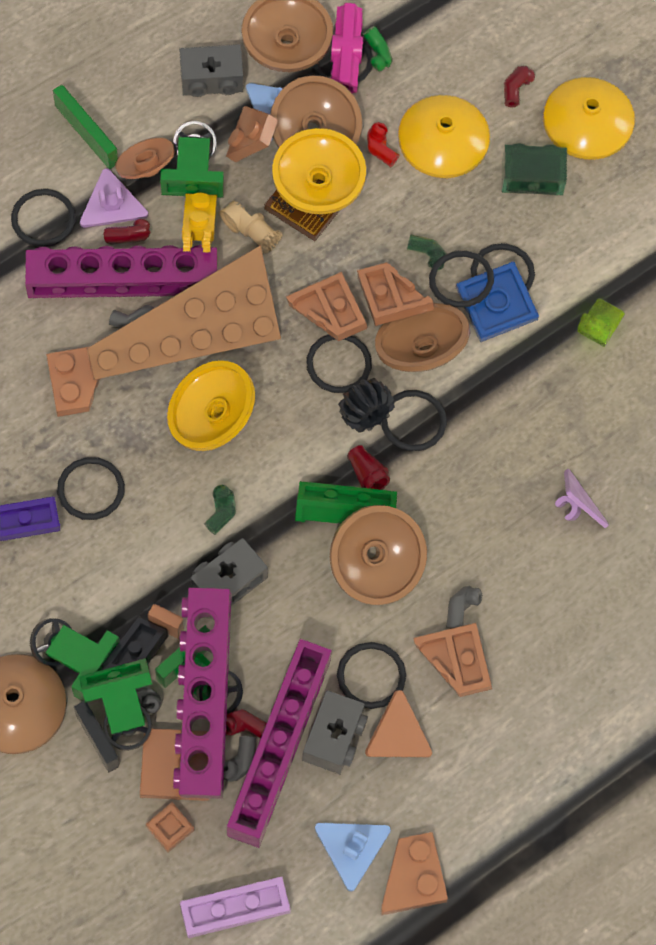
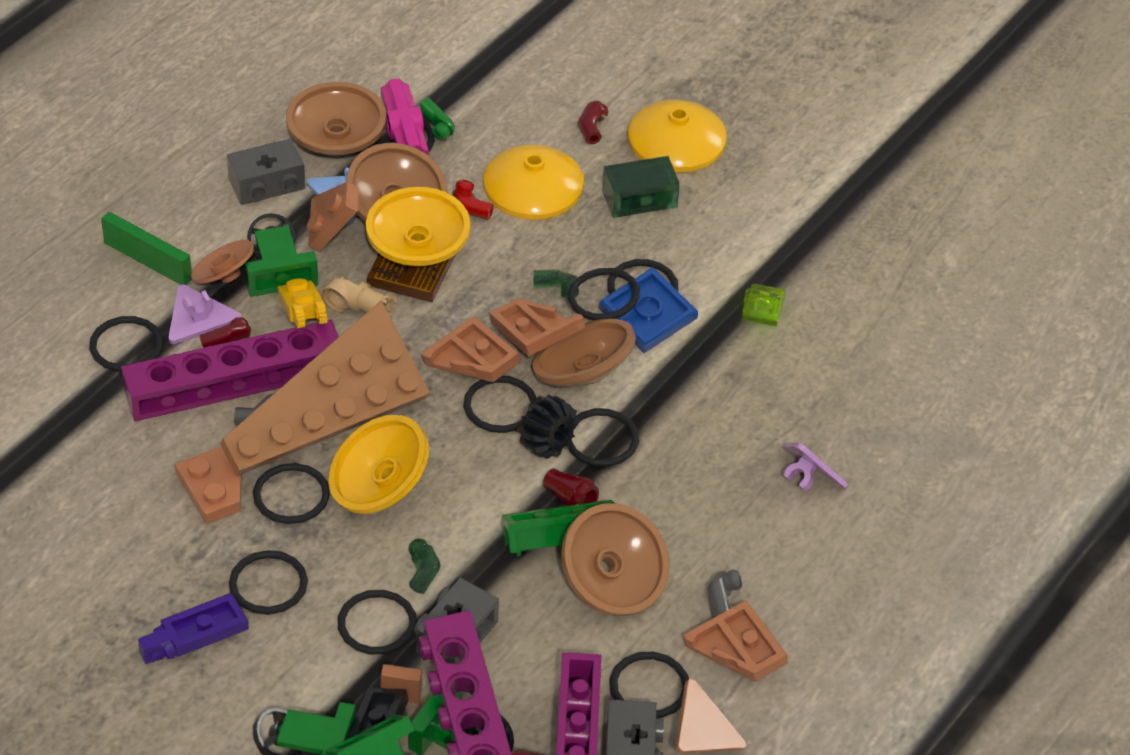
camera: 15 degrees left, 20 degrees down
(131, 433) = (290, 467): none -> black piece
(165, 523) = (376, 594): none -> black piece

